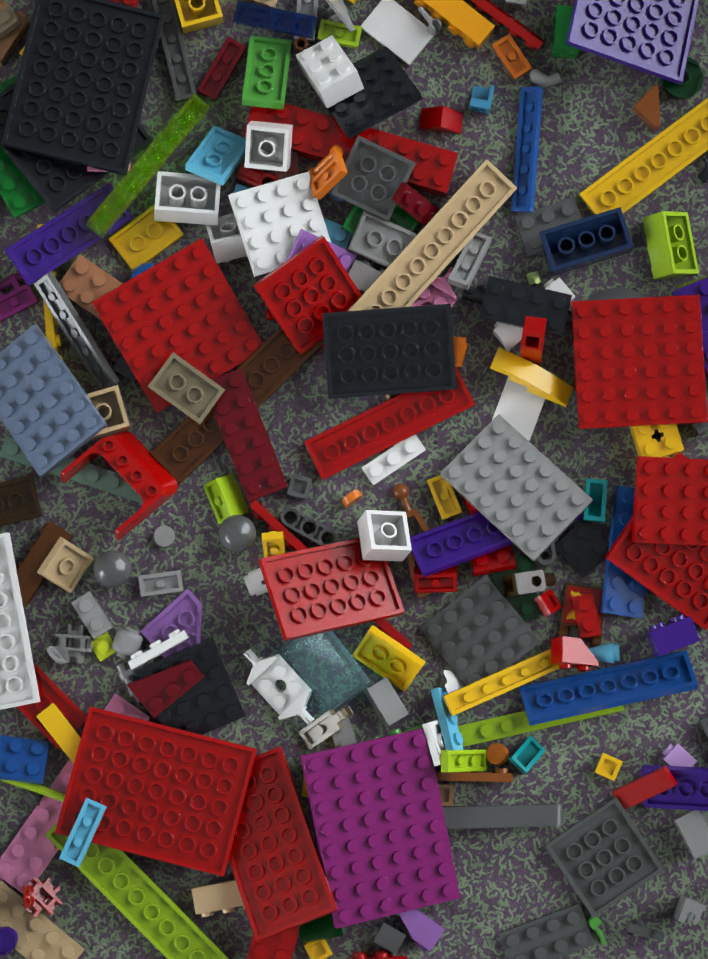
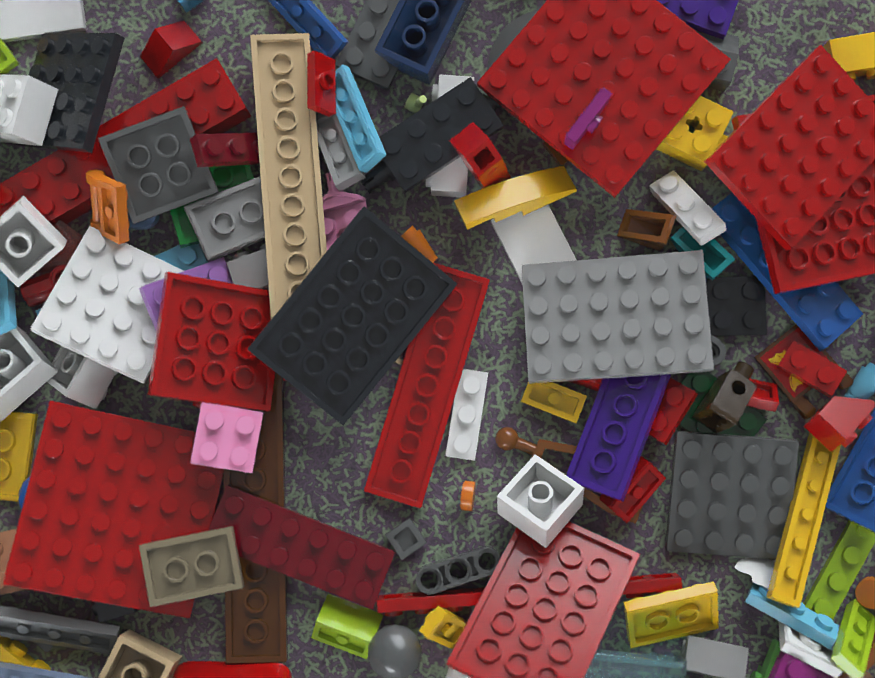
camera: 40 degrees left, 0 degrees up
(267, 345) = (226, 437): none -> bright pink brick
(493, 254) = (357, 122): none -> medium azure tile
(496, 220) = (321, 83): none -> red plate
(580, 461) = (646, 228): none -> dark orange slope
(603, 377) = (589, 118): none -> magenta plate
(610, 472) = (688, 207): none -> white plate

